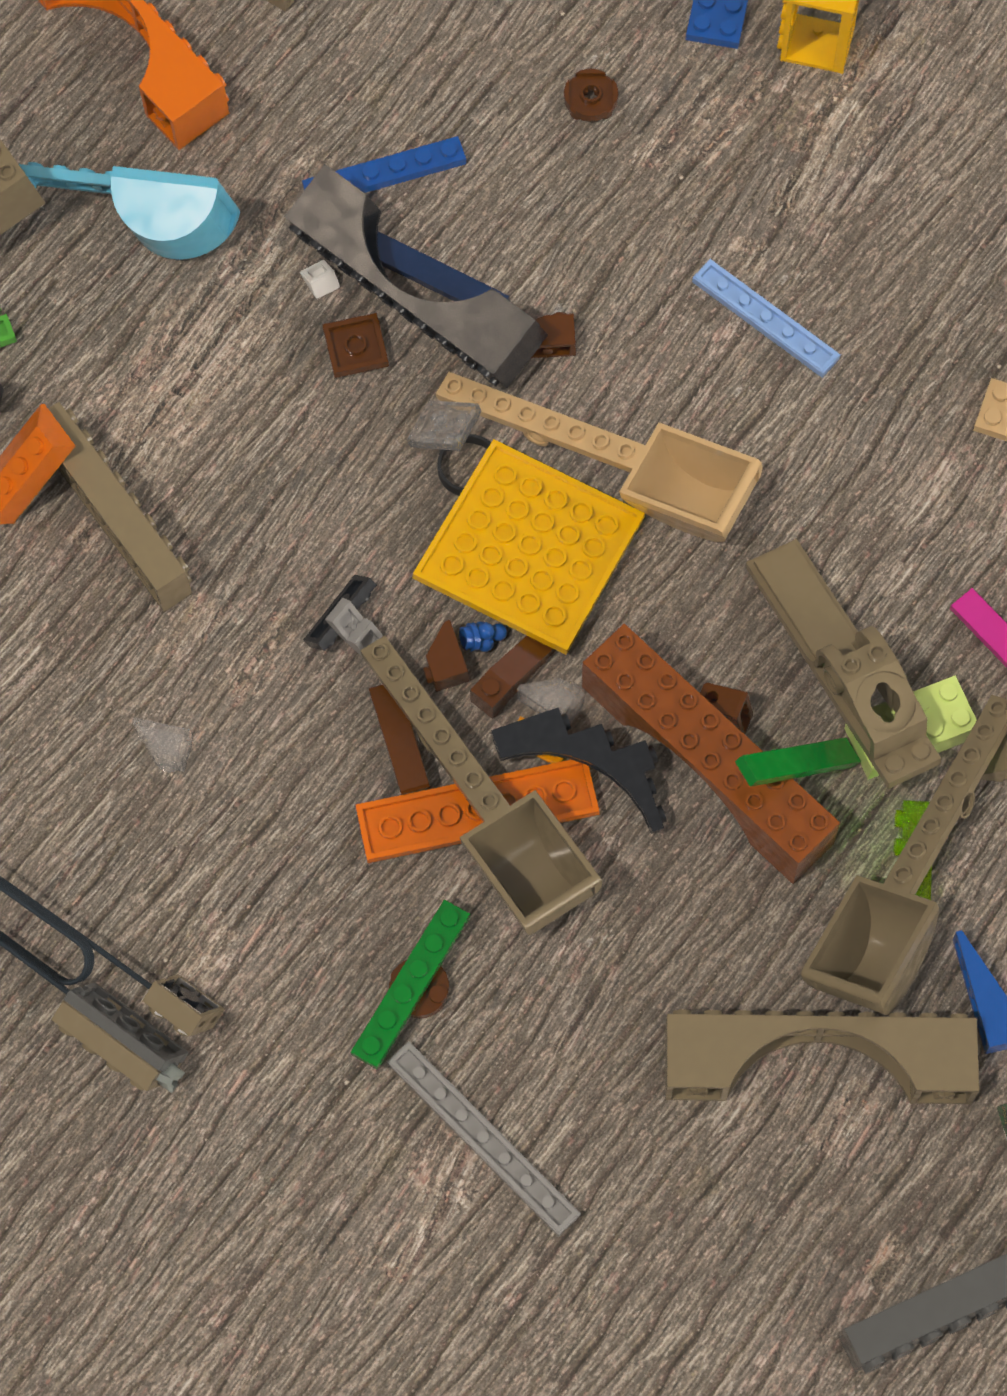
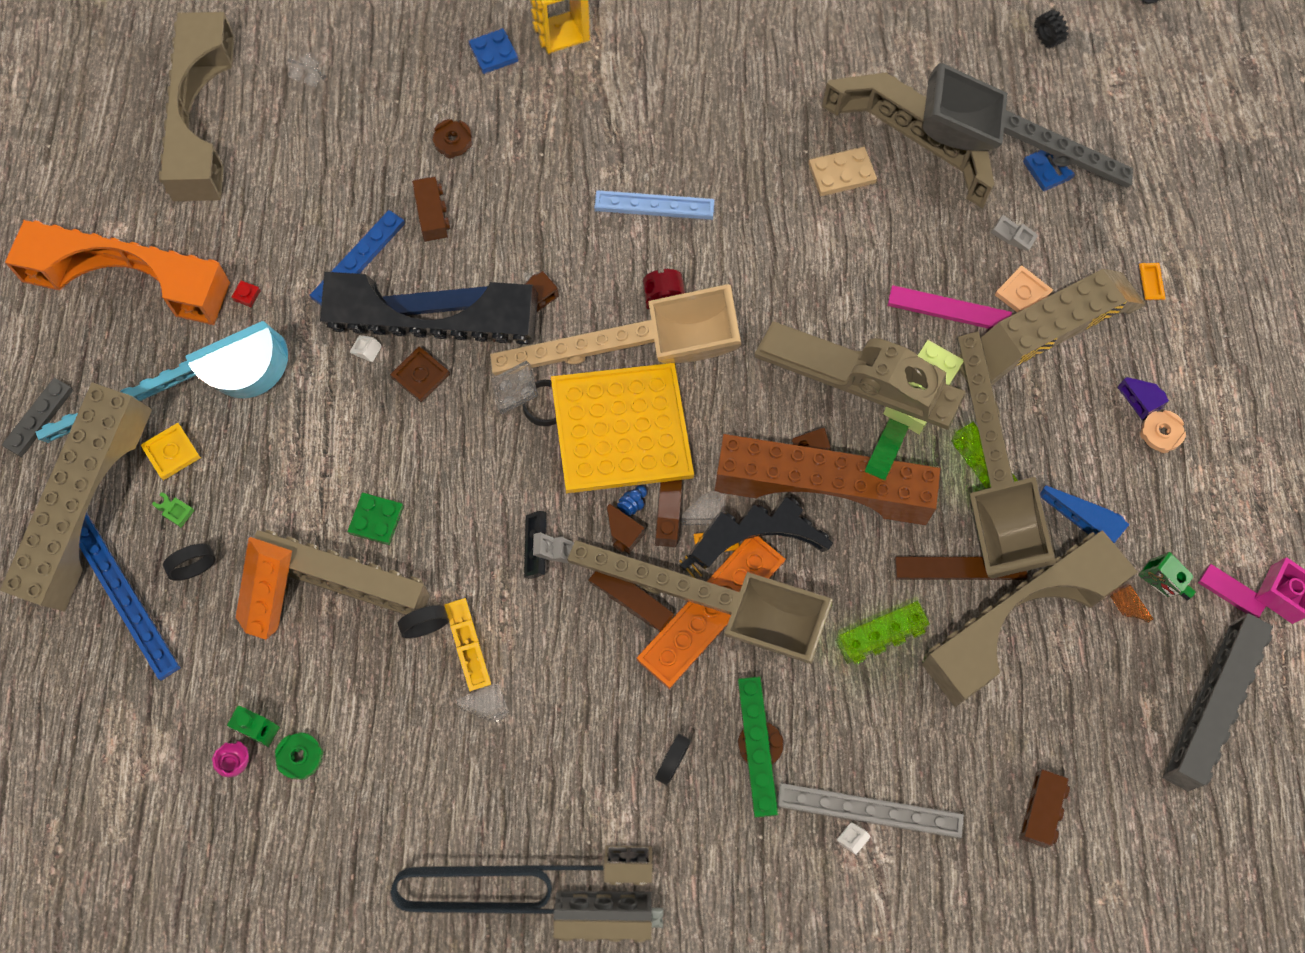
camera: 40 degrees left, 0 degrees up
(36, 261) = (170, 451): none -> yellow plate
(140, 613) = (423, 621): none -> black tyre
(192, 670) = (467, 644): none -> yellow slope
(195, 473) = (375, 518): none -> green plate
(236, 136) = (246, 293): none -> red plate
(310, 933) = (673, 759): none -> black tyre
(440, 1151) = (853, 838): none -> white plate
(488, 744) = (688, 563): none -> piece
(504, 164) = (431, 208): none -> reddish brown brick
(644, 963) = (882, 632): none -> clear neon green brick
(673, 1271) = (1044, 809): none -> reddish brown brick
(695, 416) = (662, 285): none -> dark red brick
(771, 943) = (946, 569): none -> reddish brown tile
(958, 1130) = (1130, 604): none -> clear orange tile

